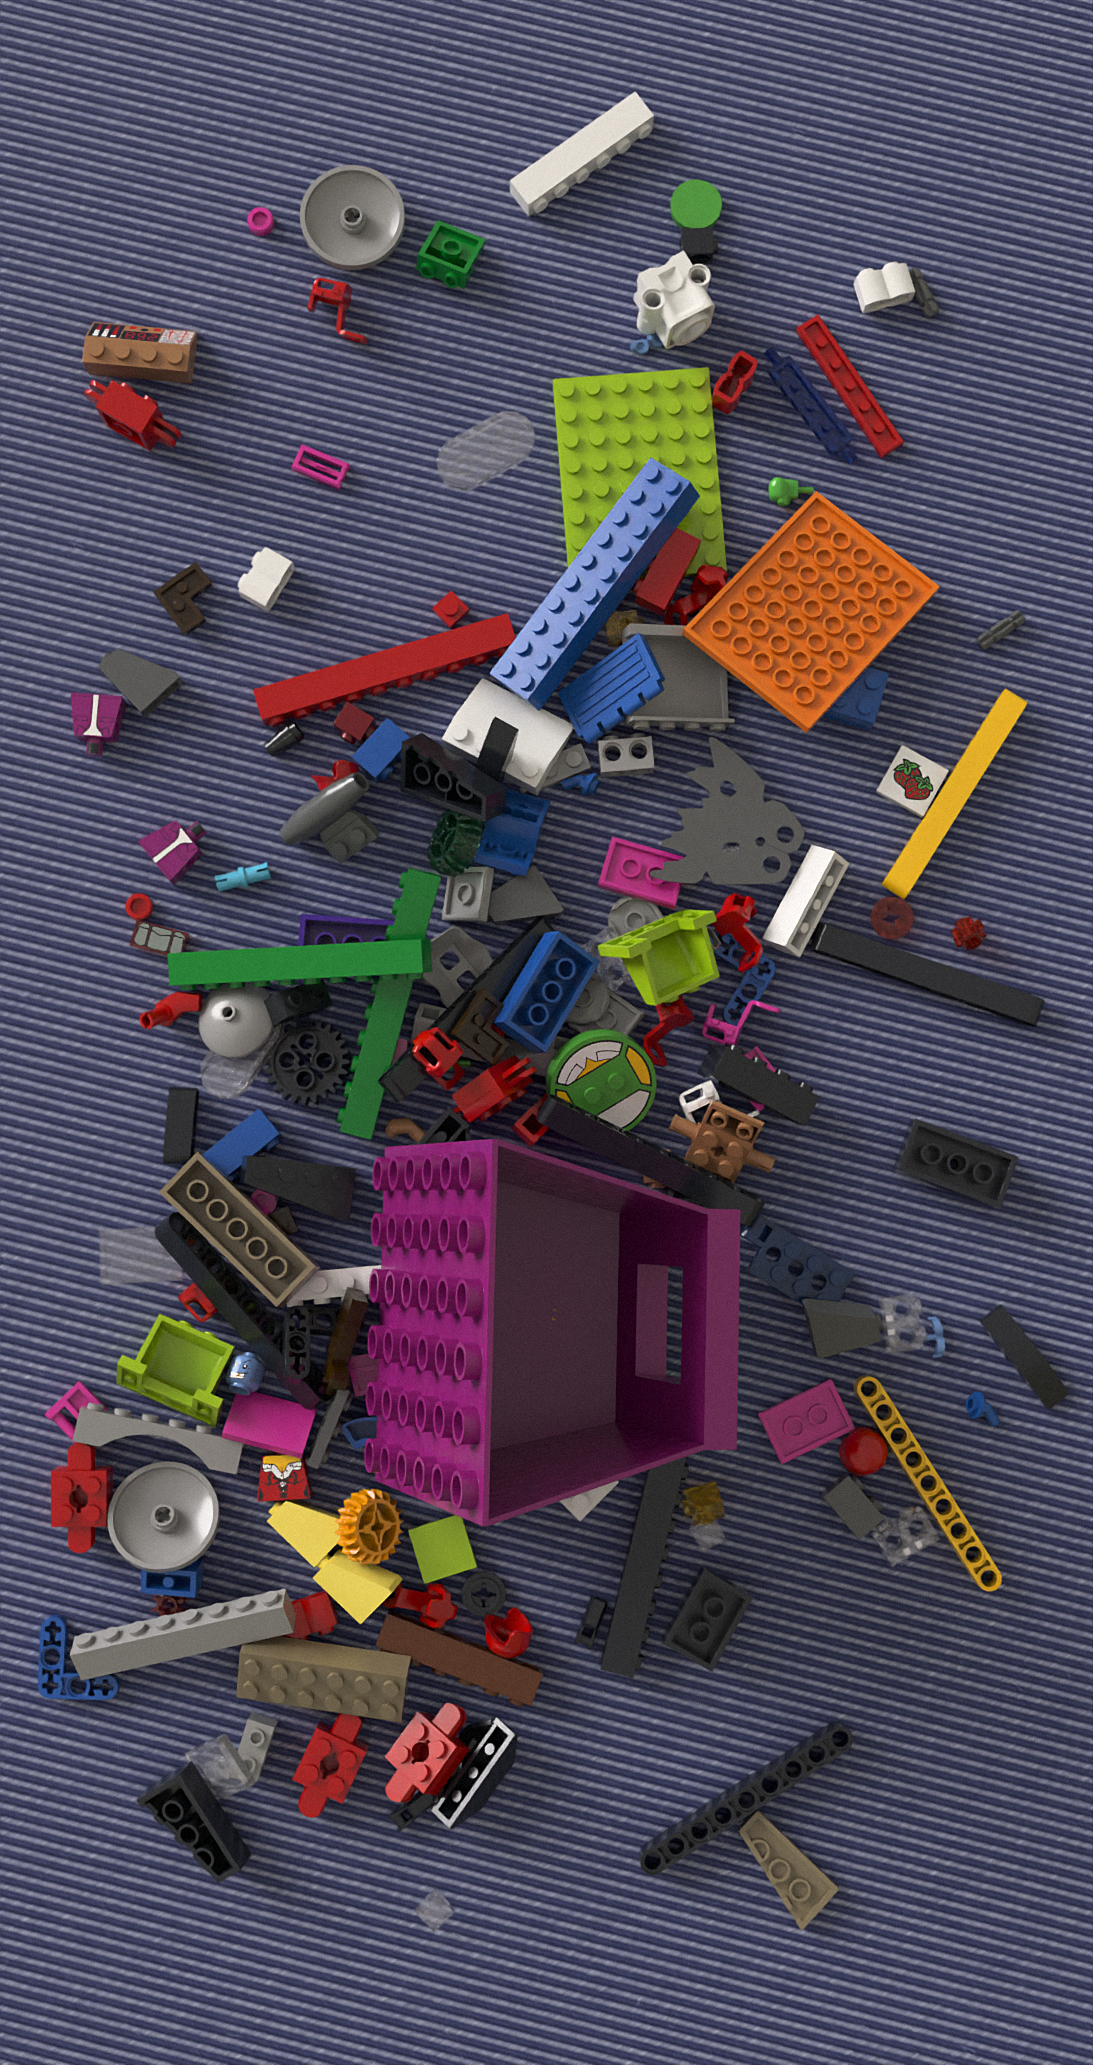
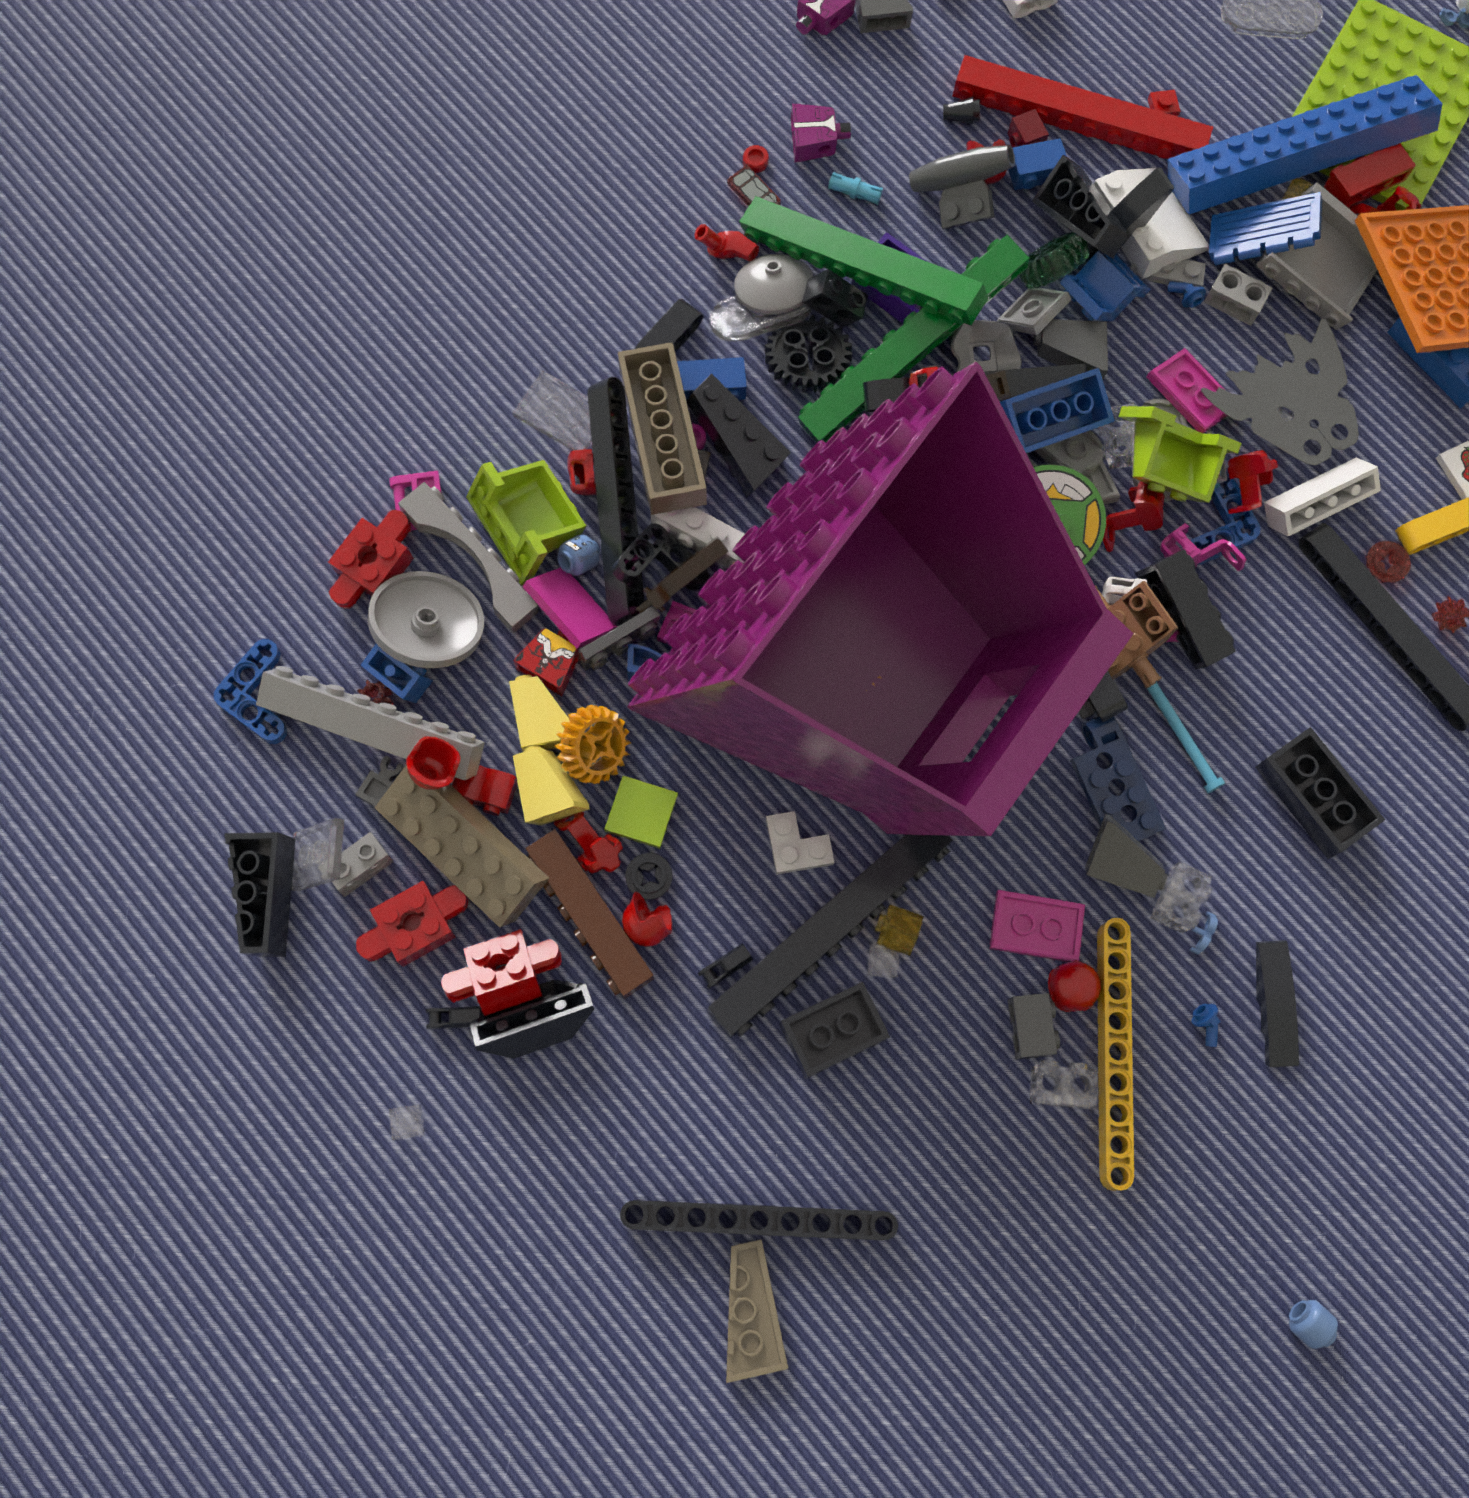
camera: 30 degrees right, 10 degrees down
(224, 1672) = (376, 784): none -> dark grey plate
(263, 1645) = (432, 763): none -> red helmet
(823, 1185) = (1185, 739): none -> medium azure bar

